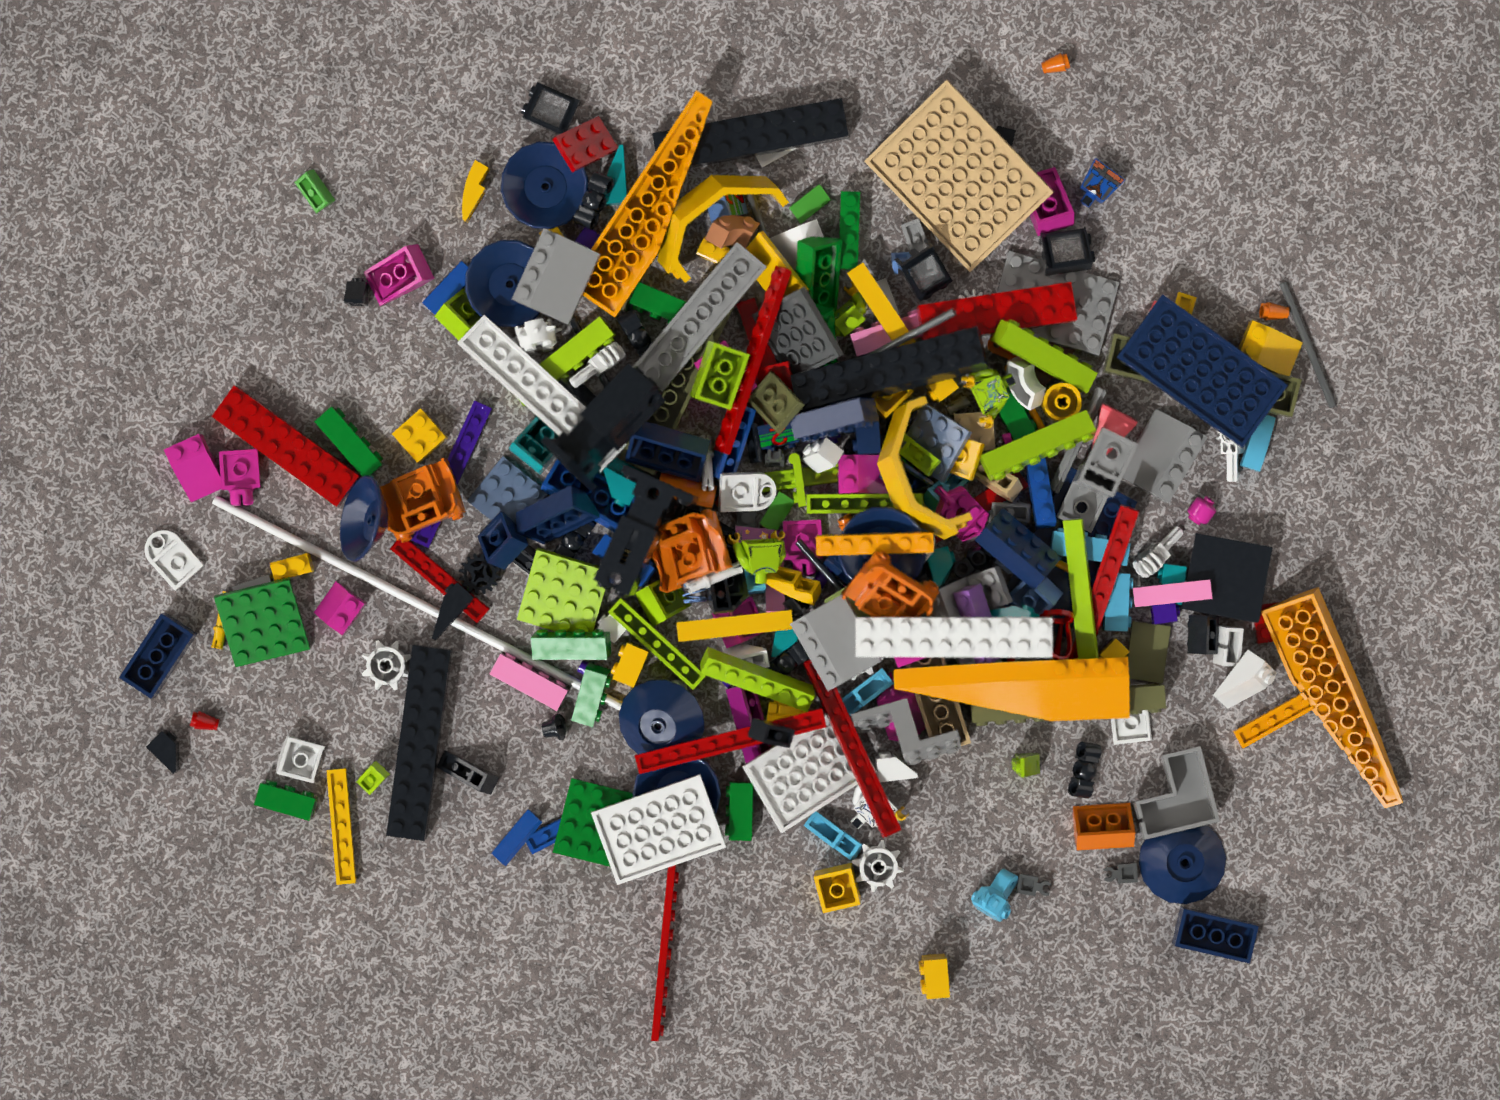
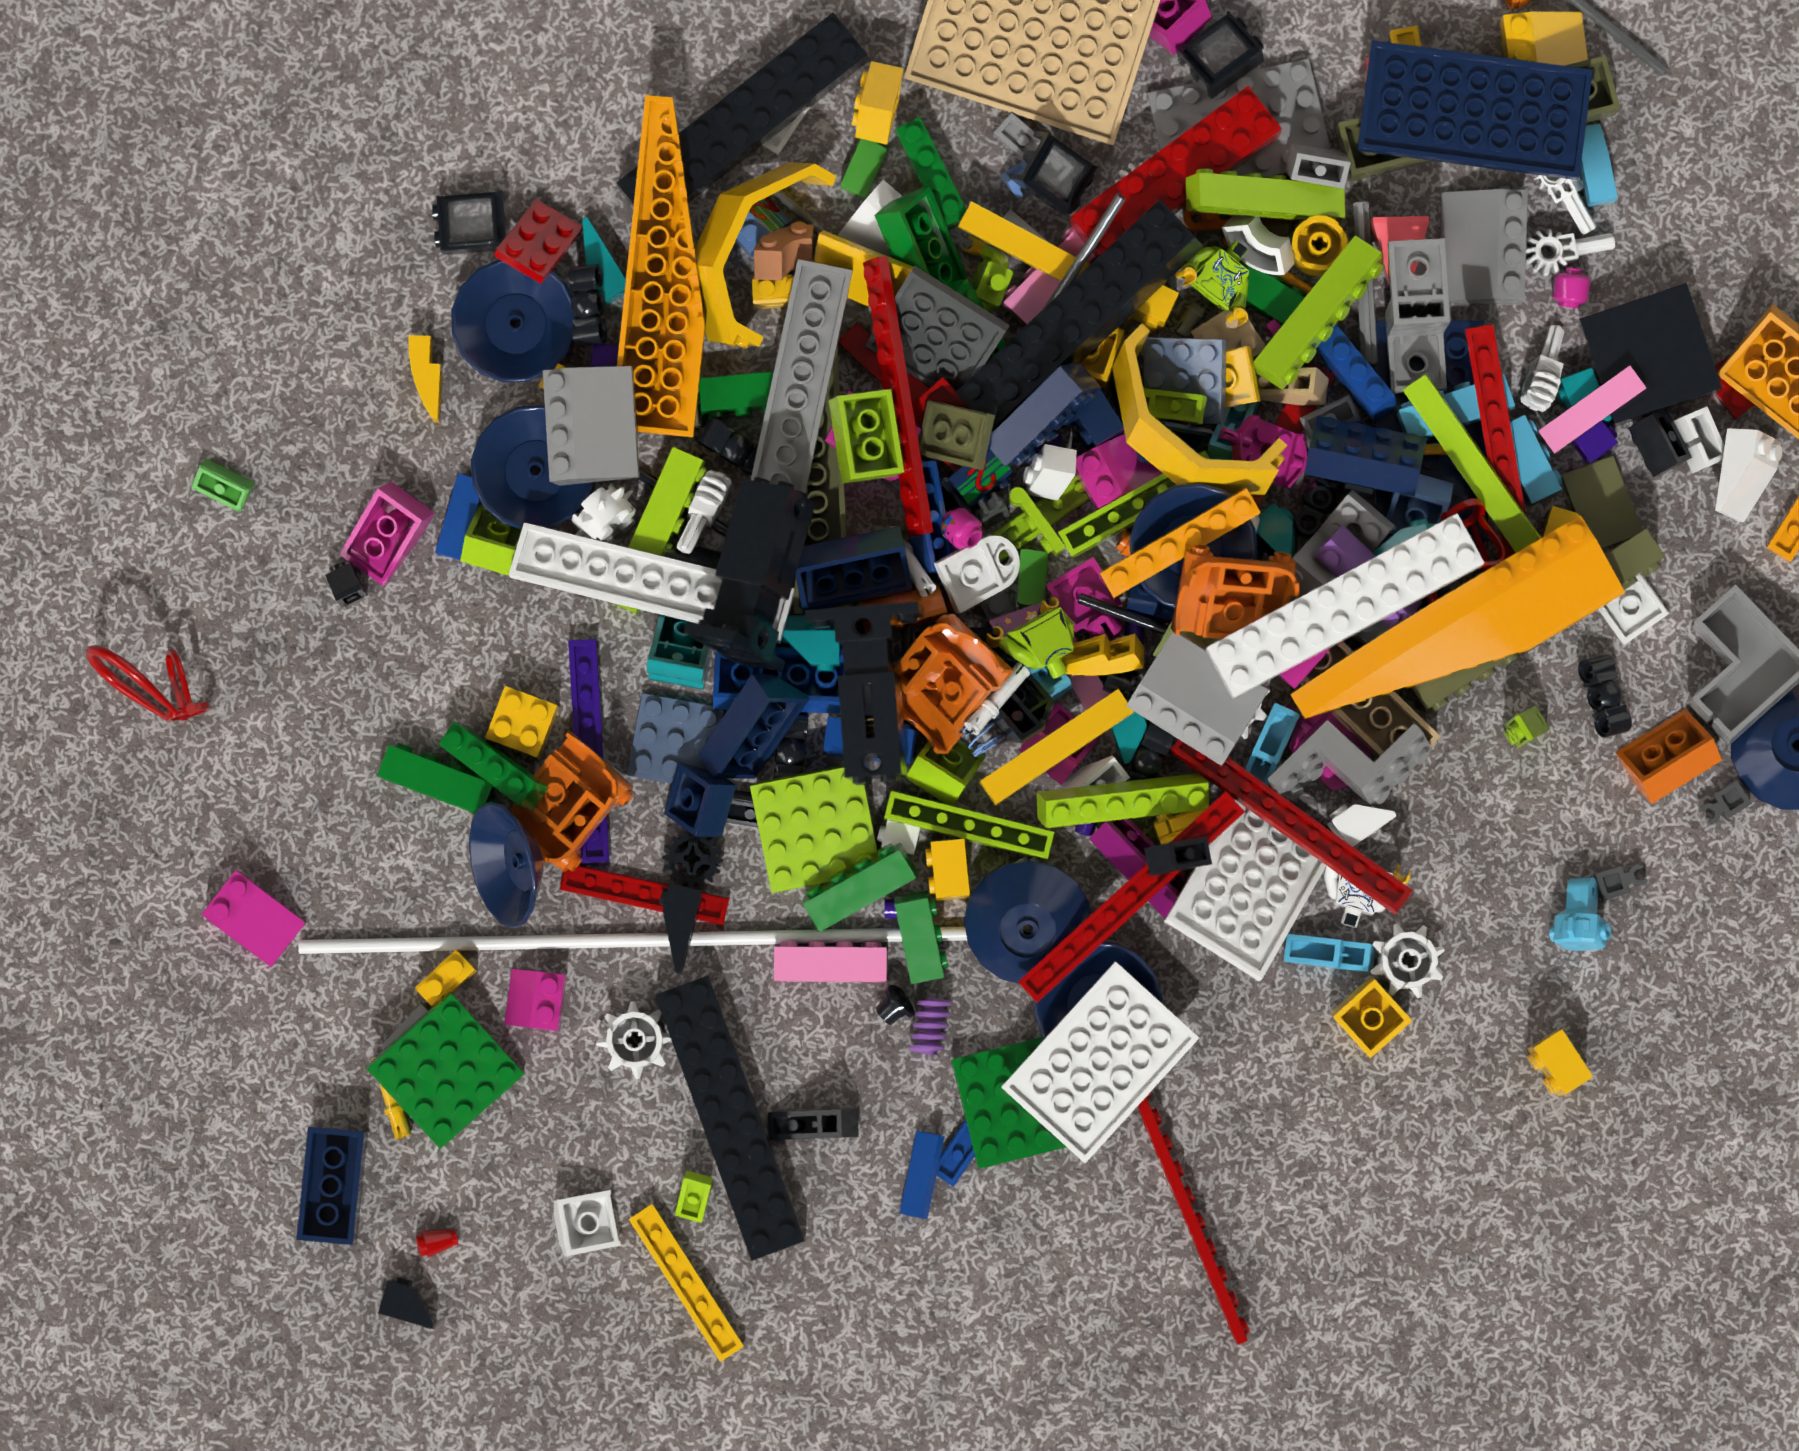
camera: 25 degrees left, 5 degrees down
(173, 559) = (285, 1053): white tile -> none
(196, 290) = (182, 713): none -> red animal
(240, 474) = (316, 896): dark pink plate -> none
(286, 446) = (357, 827): red brick -> none
(286, 800) = (596, 1286): green brick -> none
(387, 453) = (493, 765): none -> green brick
(570, 751) = (930, 1025): none -> medium lavender piece
(739, 811) = (1191, 985): green brick -> none
(748, 461) = (961, 528): none -> dark pink head
(838, 169) = (877, 102): none -> yellow brick
(1087, 353) = (1317, 165): none -> light grey brick
(1211, 484) = (1565, 249): none -> white gear

